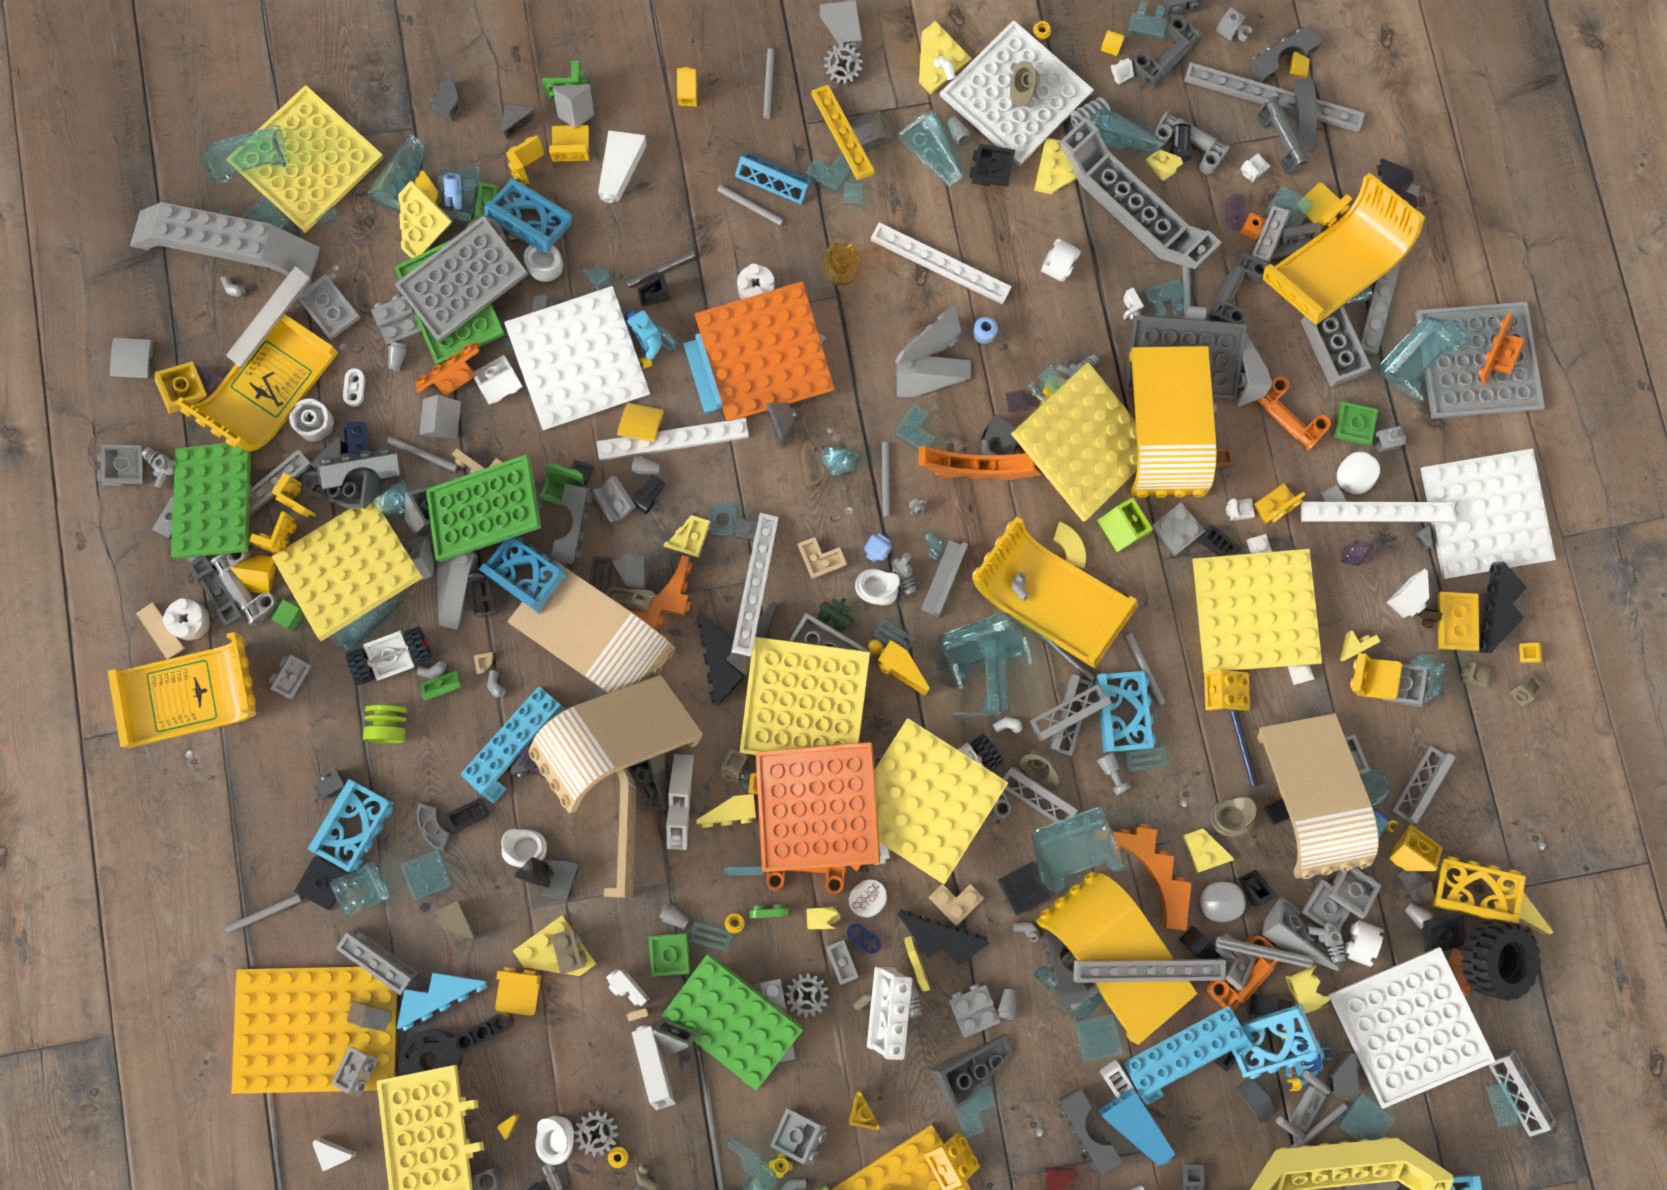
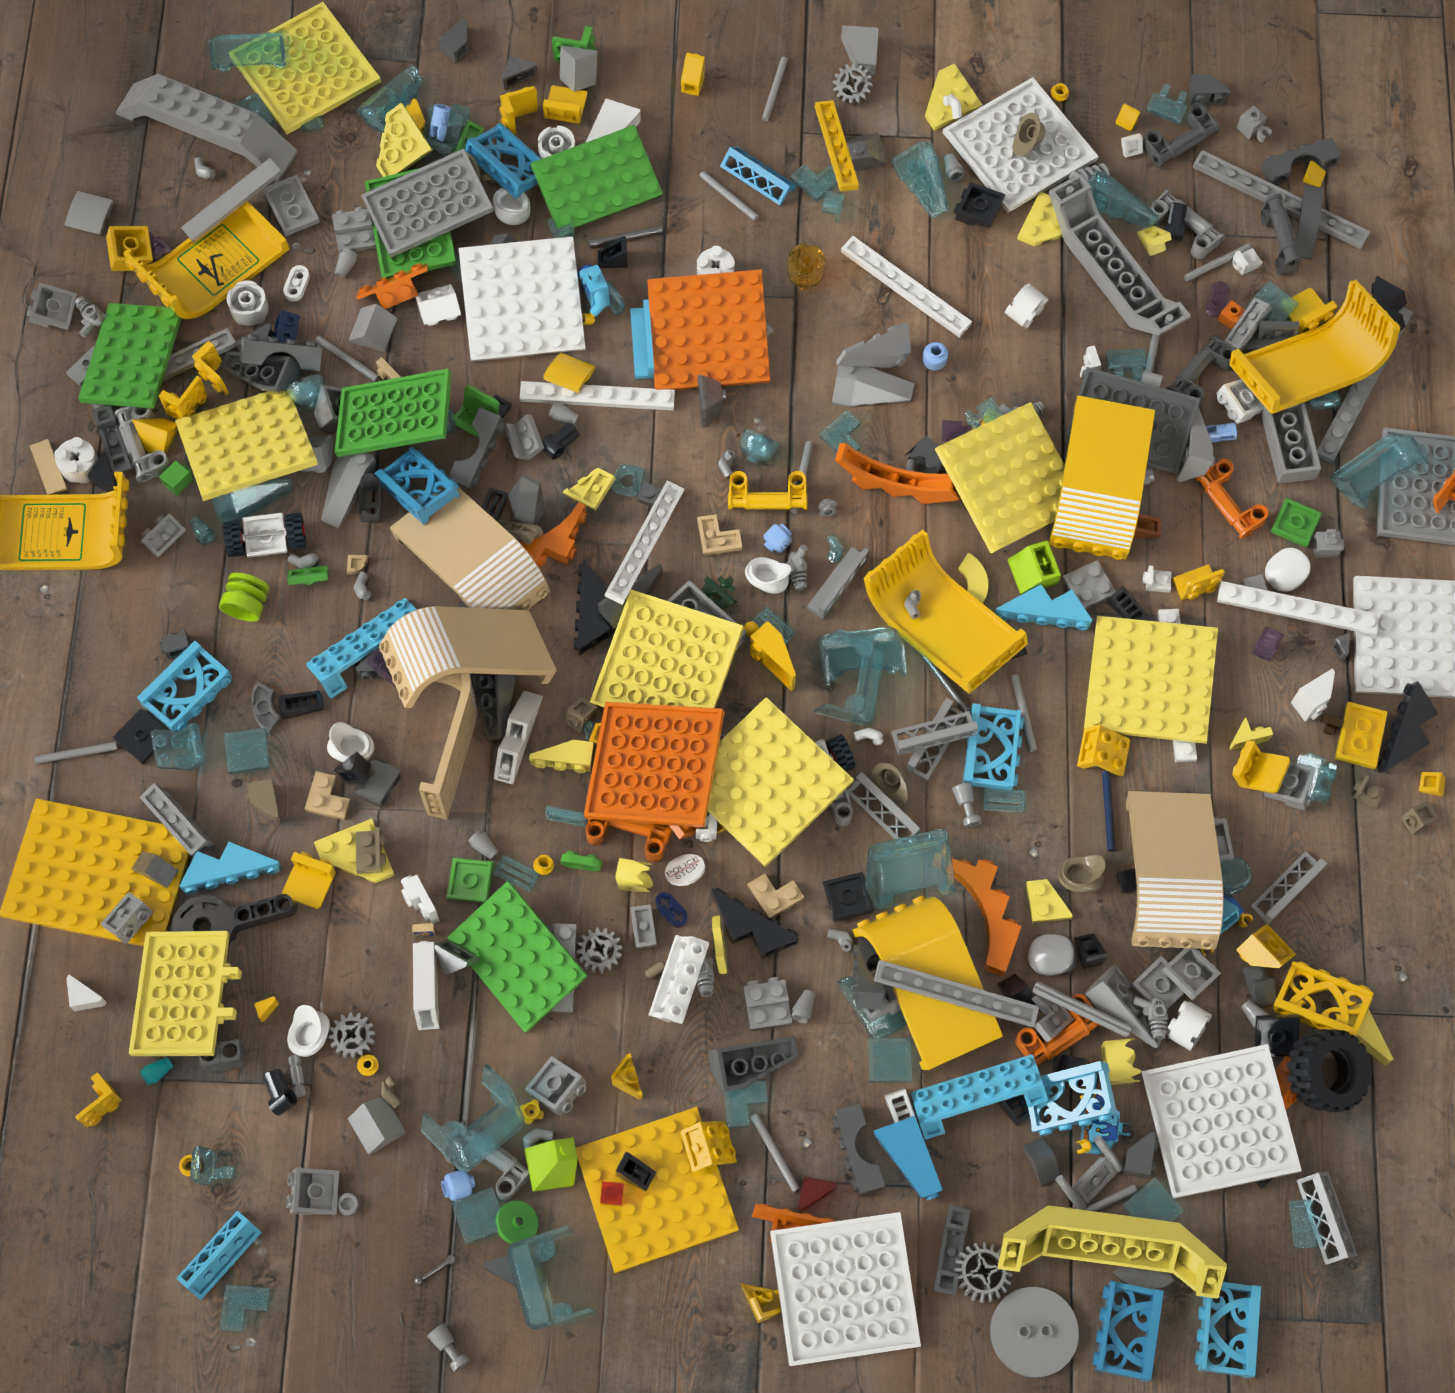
camera: 15 degrees right, 10 degrees down
(214, 627) = (102, 475): none -> black slope
(328, 664) = (203, 532): none -> clear light blue cone
(508, 906) = (321, 799): none -> tan plate
(573, 192) = (554, 141): none -> white brick
(619, 217) = (596, 178): none -> bright green plate
(810, 482) = (725, 463): none -> light grey arm
(833, 514) = (741, 497): none -> yellow piece
(1013, 1150) = (775, 1152): none -> light grey bar
(1139, 563) = (1039, 608): none -> medium azure slope
(1224, 177) = (1215, 263): none -> light grey bar
(1269, 347) = (1222, 432): none -> light blue hinge
(1279, 313) = (1239, 401): none -> white plate

